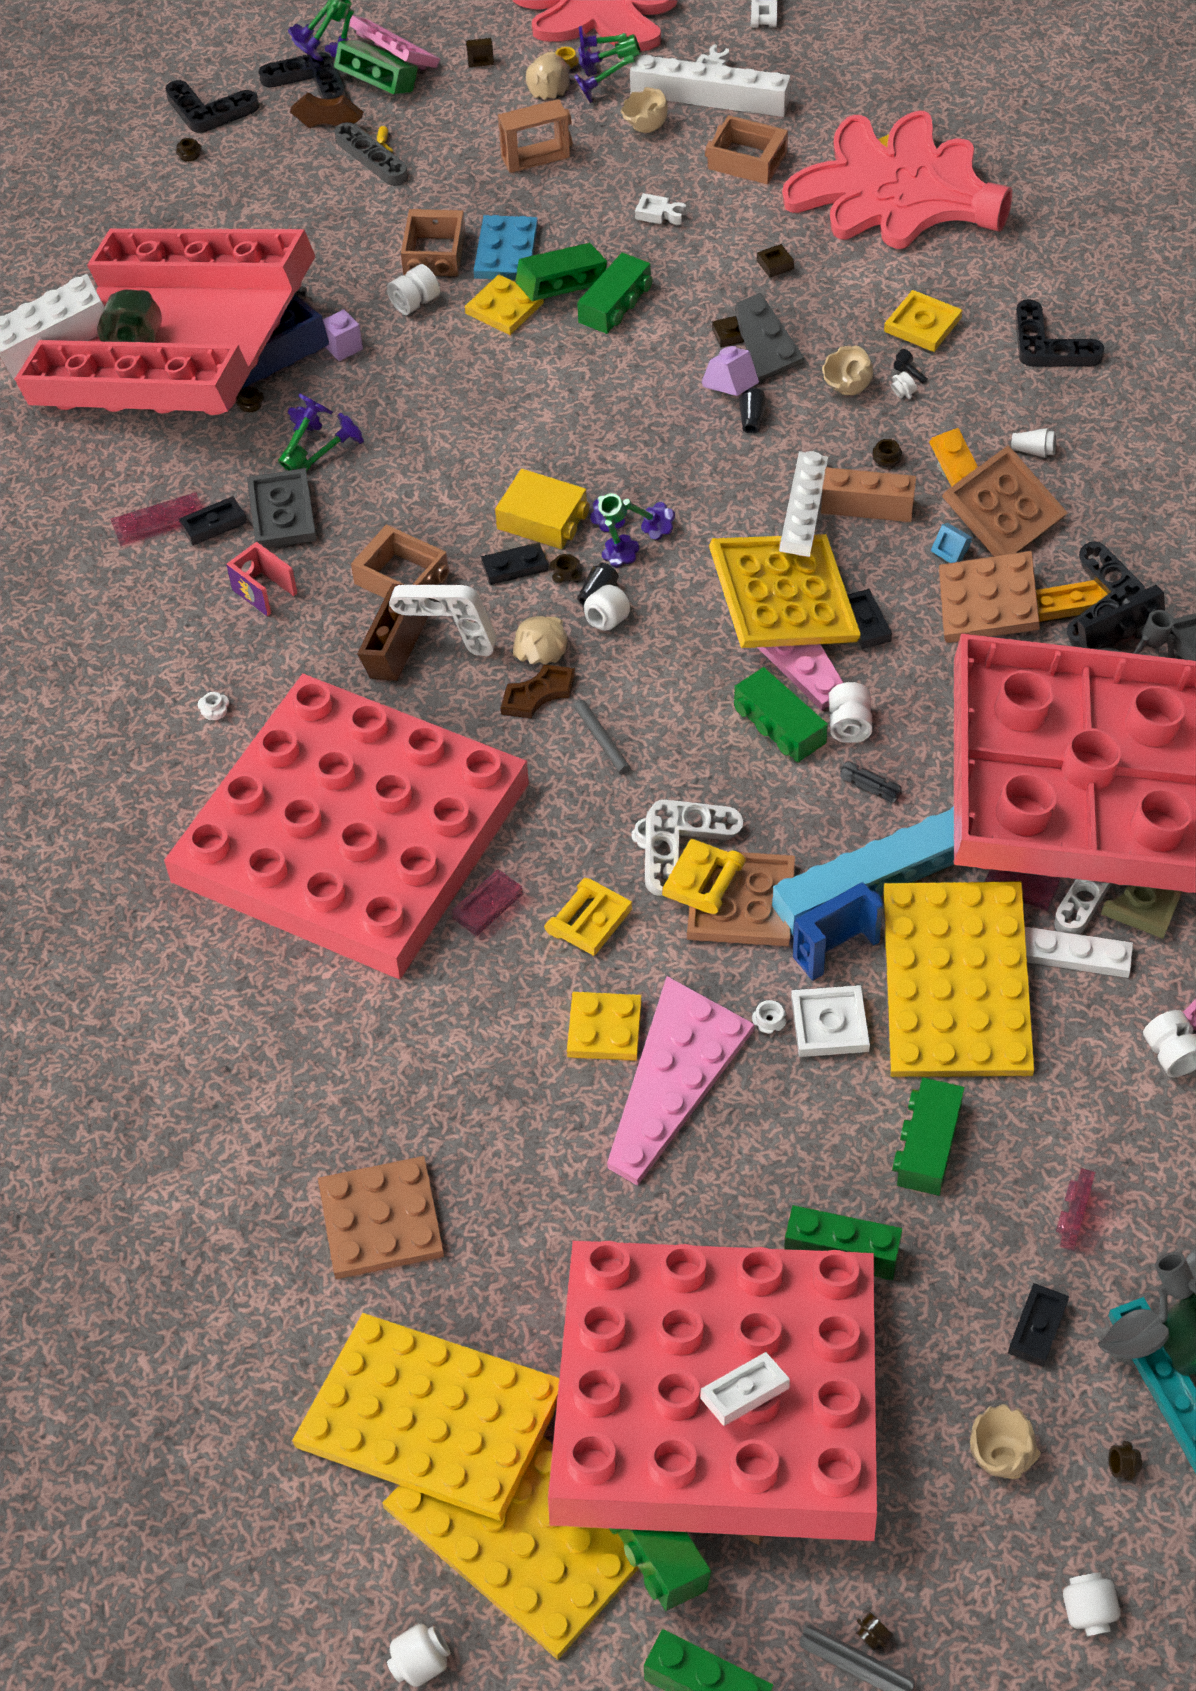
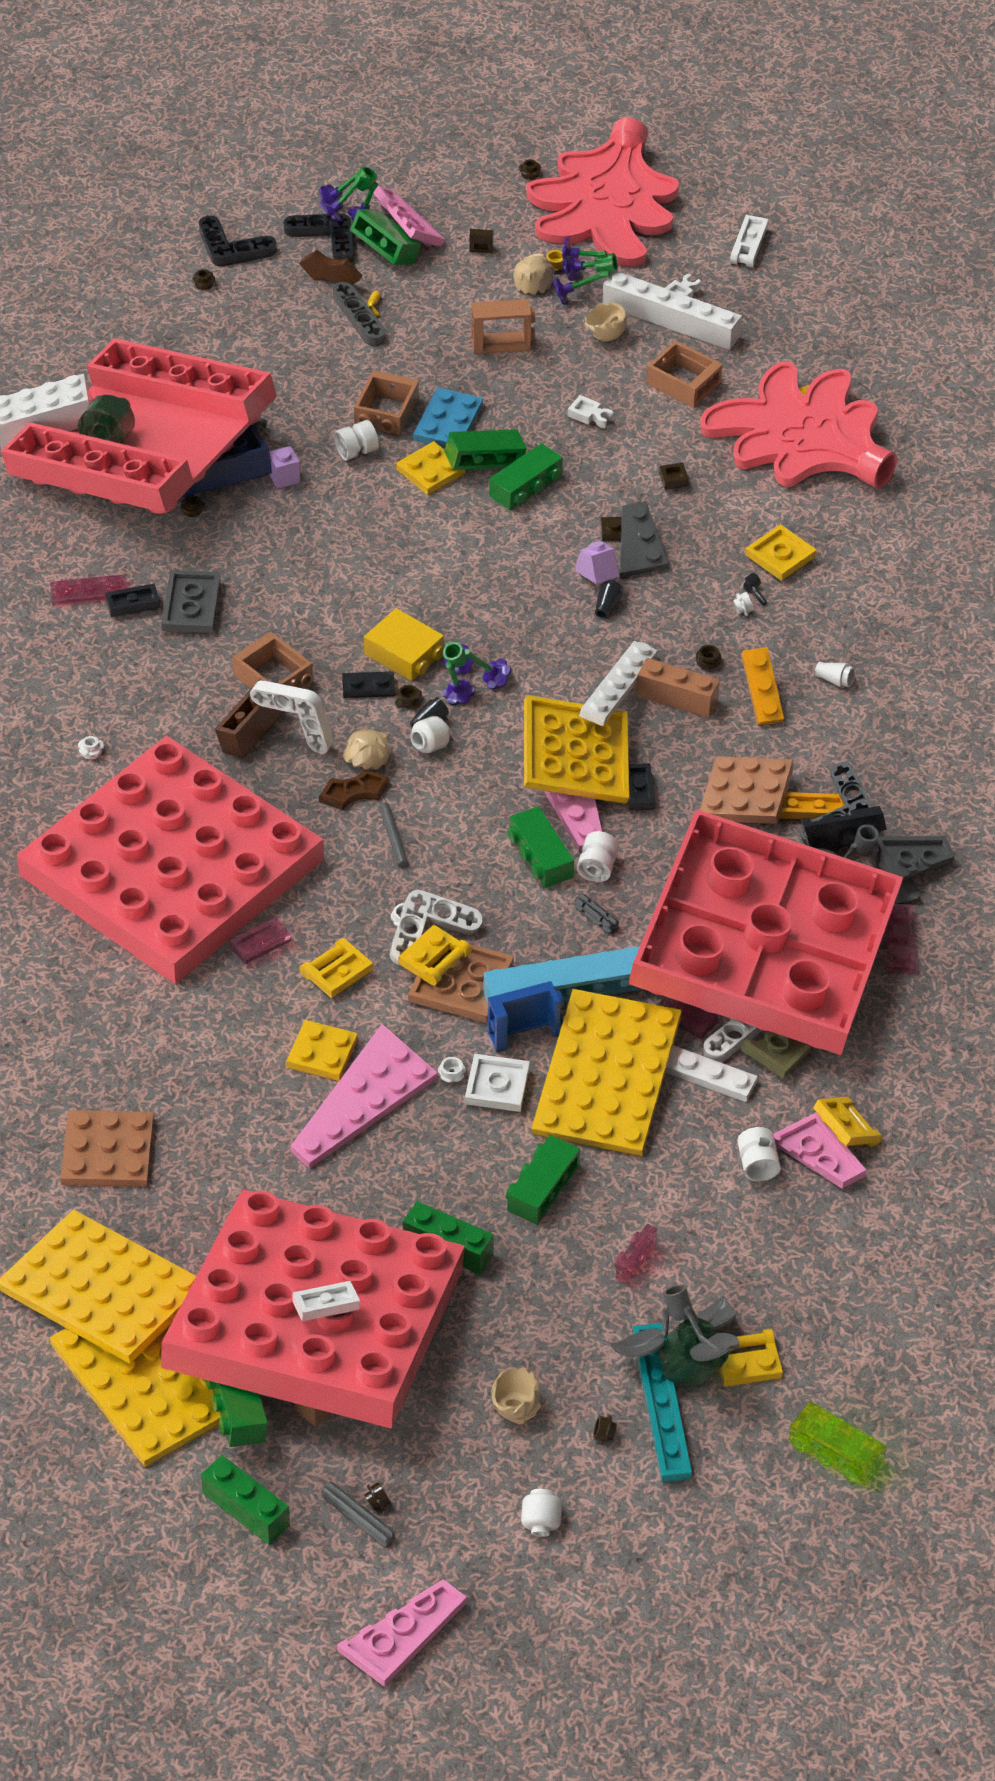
camera: 10 degrees right, 5 degrees down
(261, 562) = (161, 641): coral piece -> none
(307, 419) = (231, 531): plant -> none
(418, 1655) = (44, 1438): white head -> none
(848, 370) = (698, 581): tan hair -> none
(951, 543) = (732, 741): dark azure tile -> none
(1004, 504) = (786, 717): nougat plate -> none
(1038, 1324) = (576, 1325): black plate -> none
(1045, 348) = (877, 596): black beam -> none

